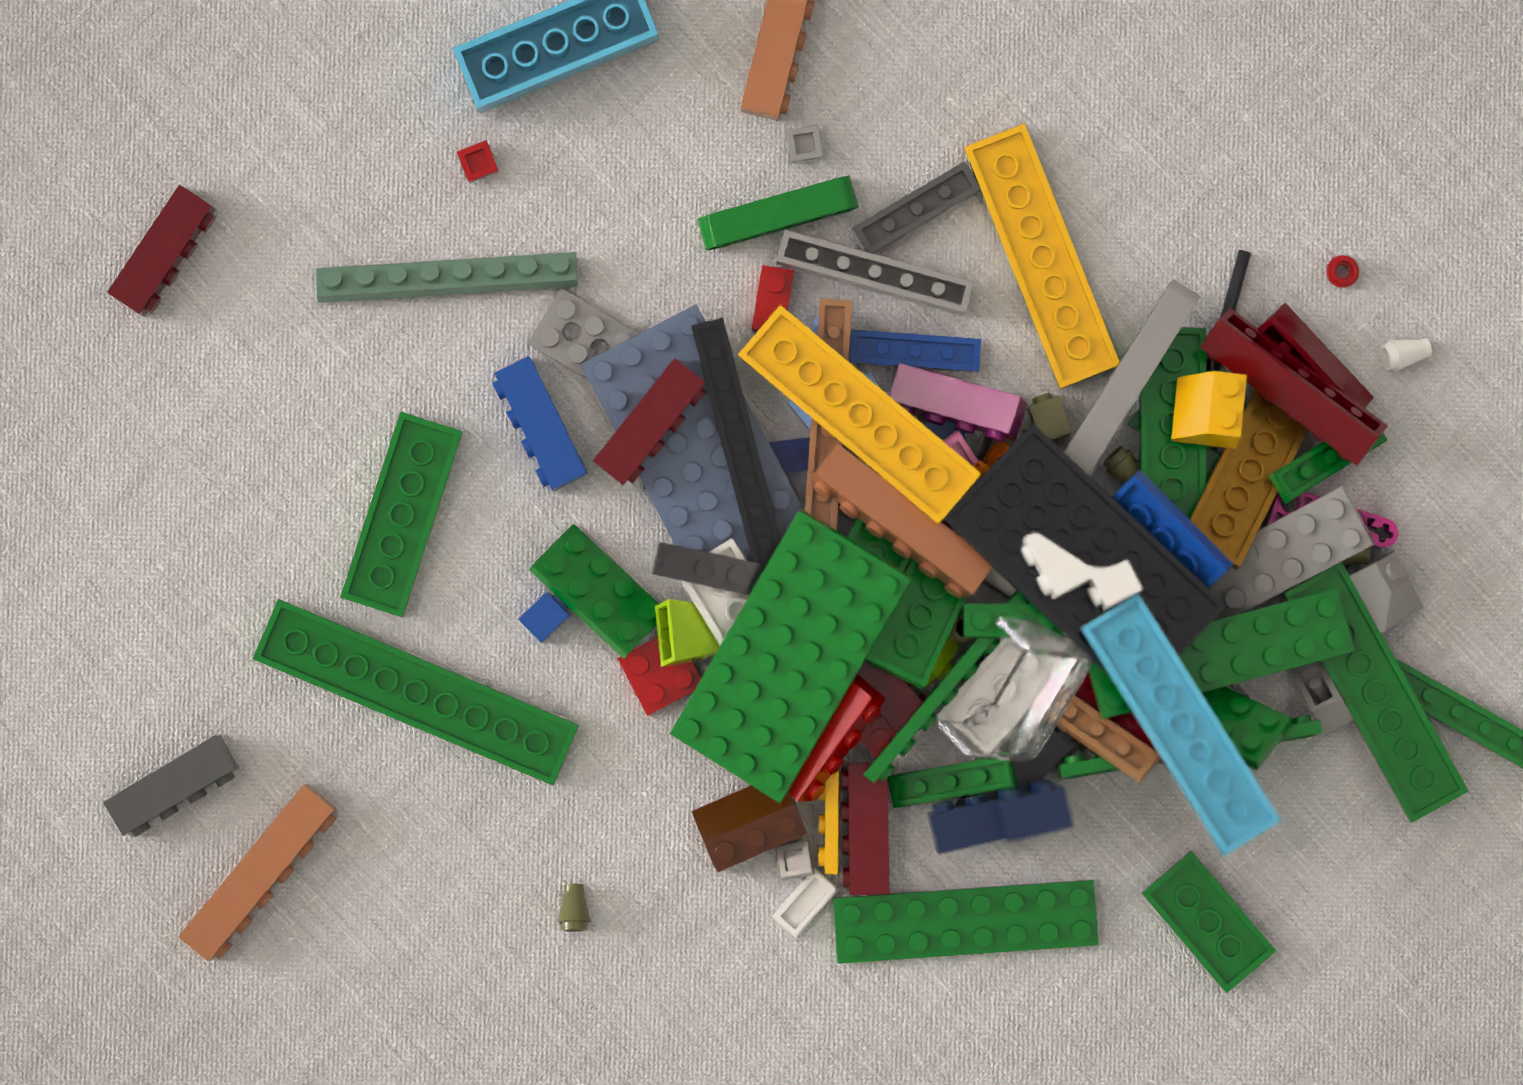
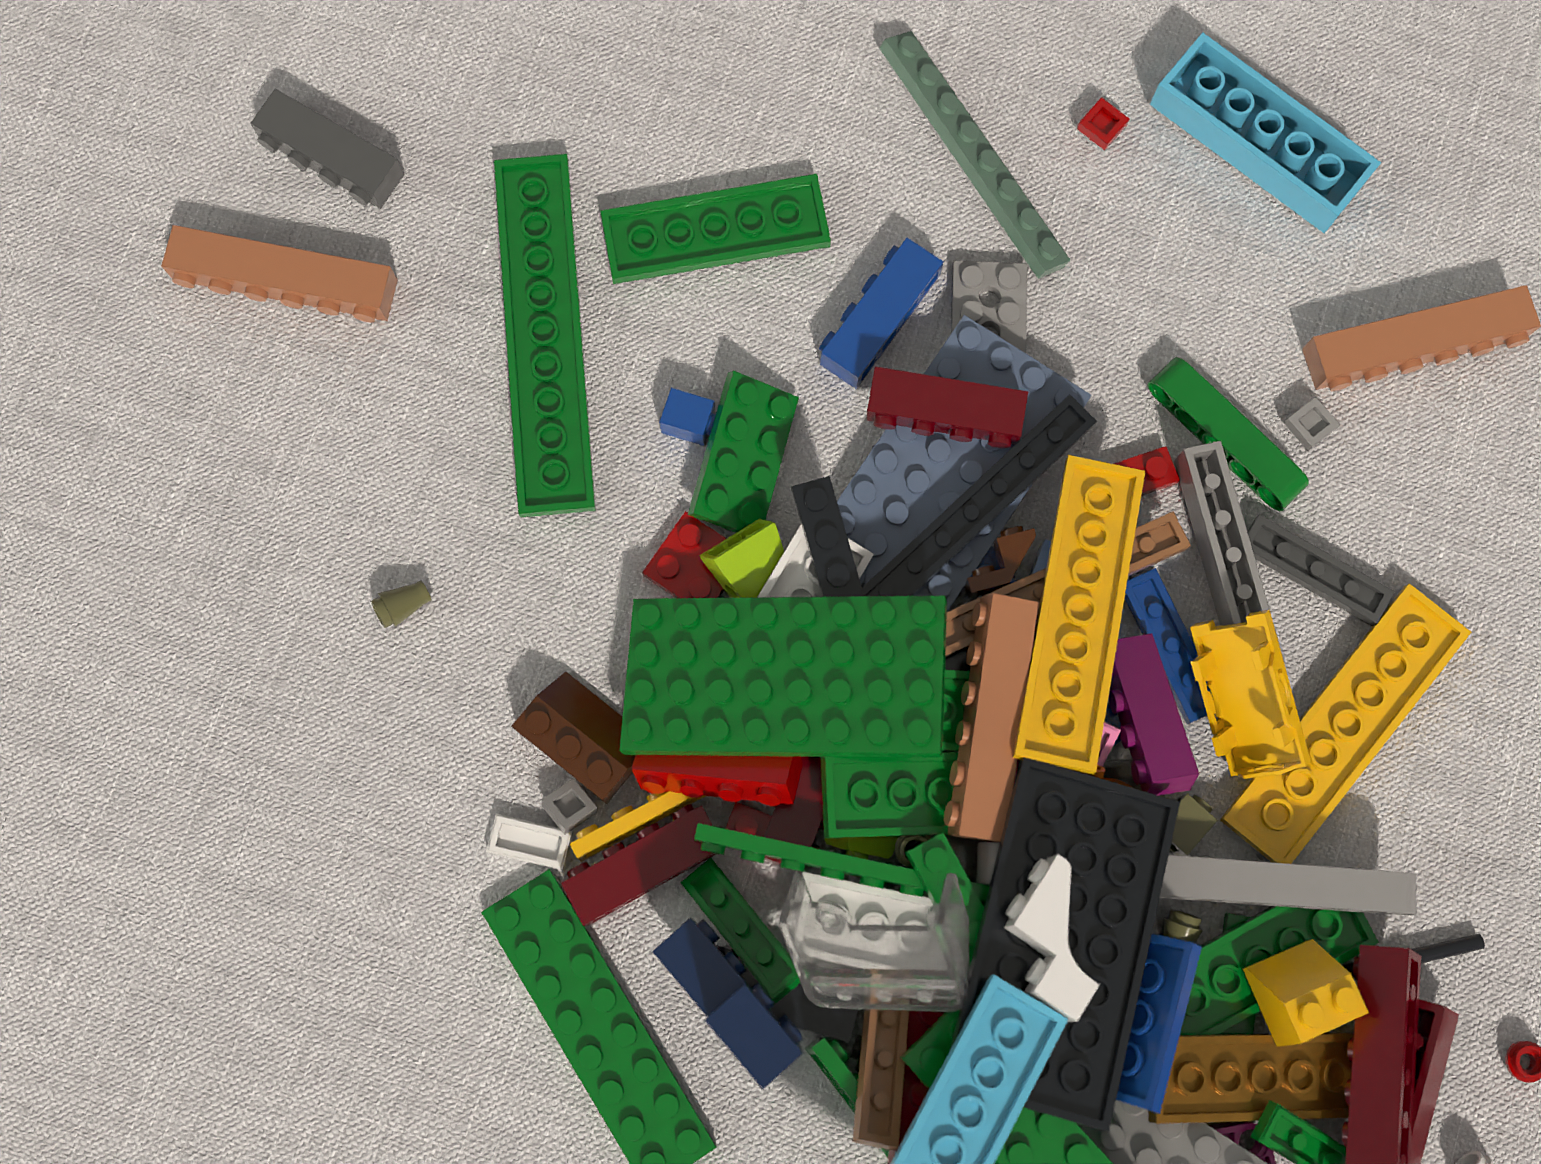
camera: 60 degrees right, 10 degrees down
(784, 433) = (1010, 552): none -> reddish brown slope
(985, 319) = (1251, 697): none -> yellow piece

